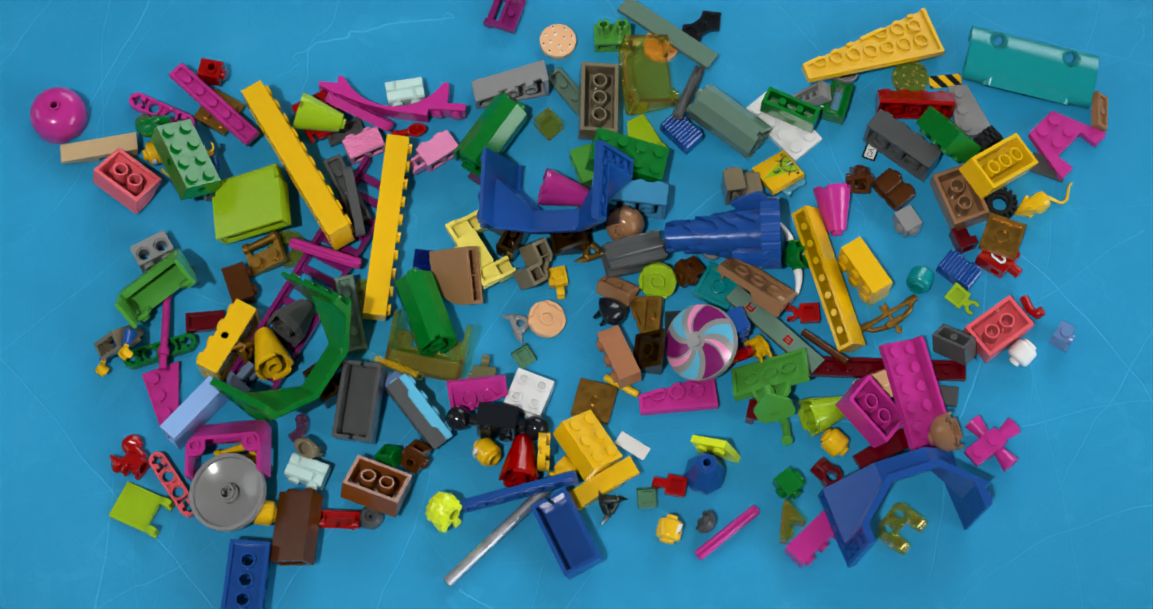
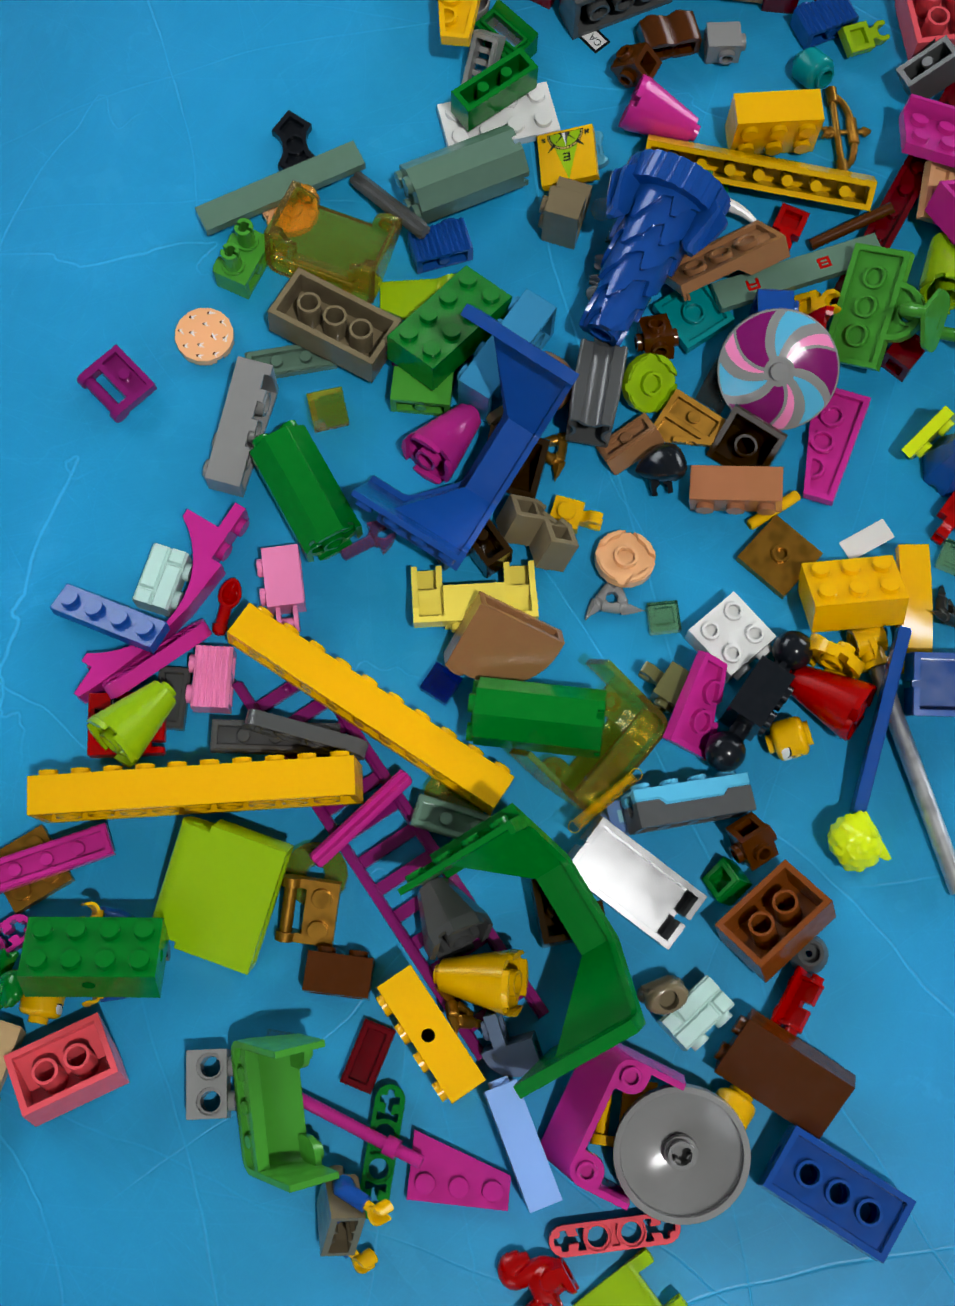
camera: 65 degrees left, 5 degrees up
(369, 77) = (110, 618): none -> plate

